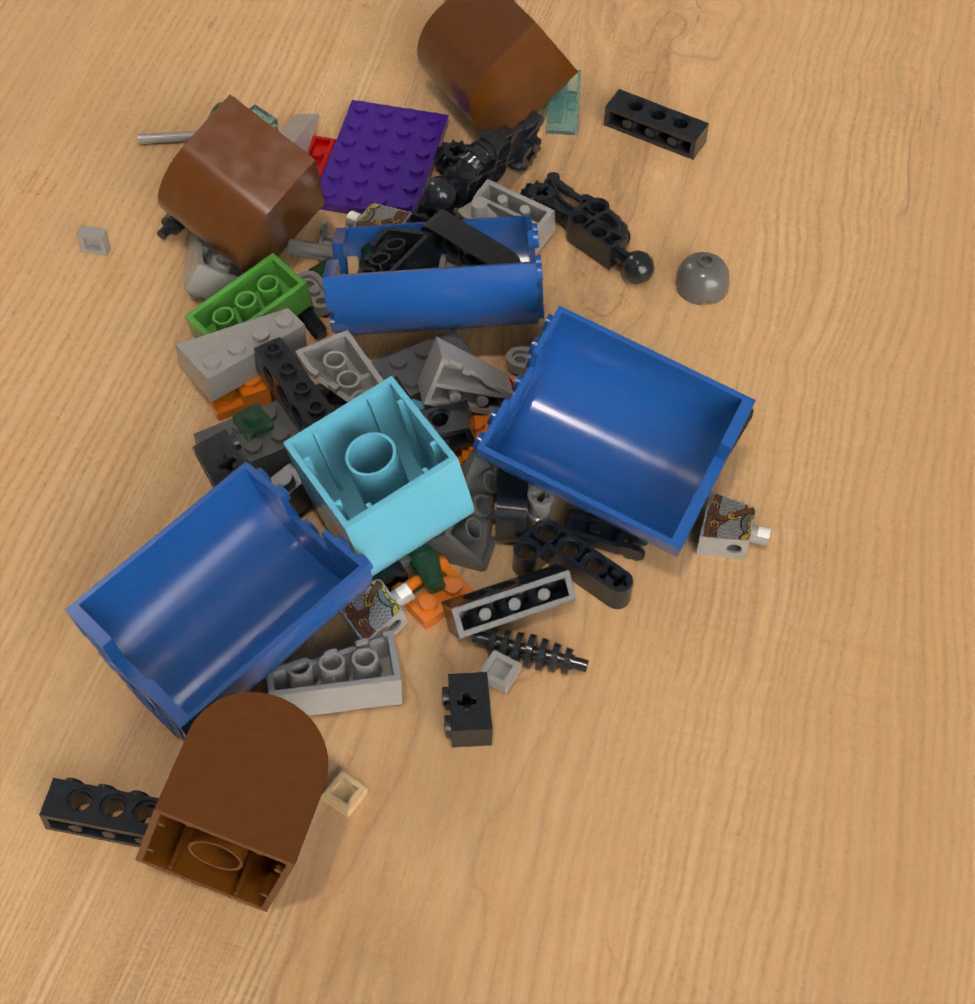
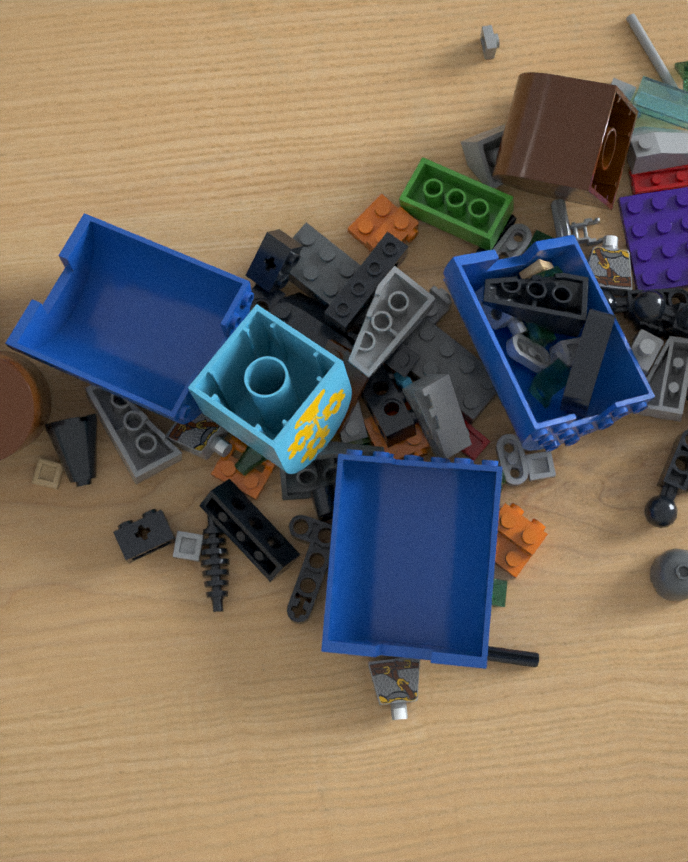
camera: 70 degrees right, 25 degrees up
(227, 357) = (383, 209): light grey wedge -> none
(252, 422) = (329, 262): clear green plate -> none
(345, 743) = (76, 447): none -> black cone

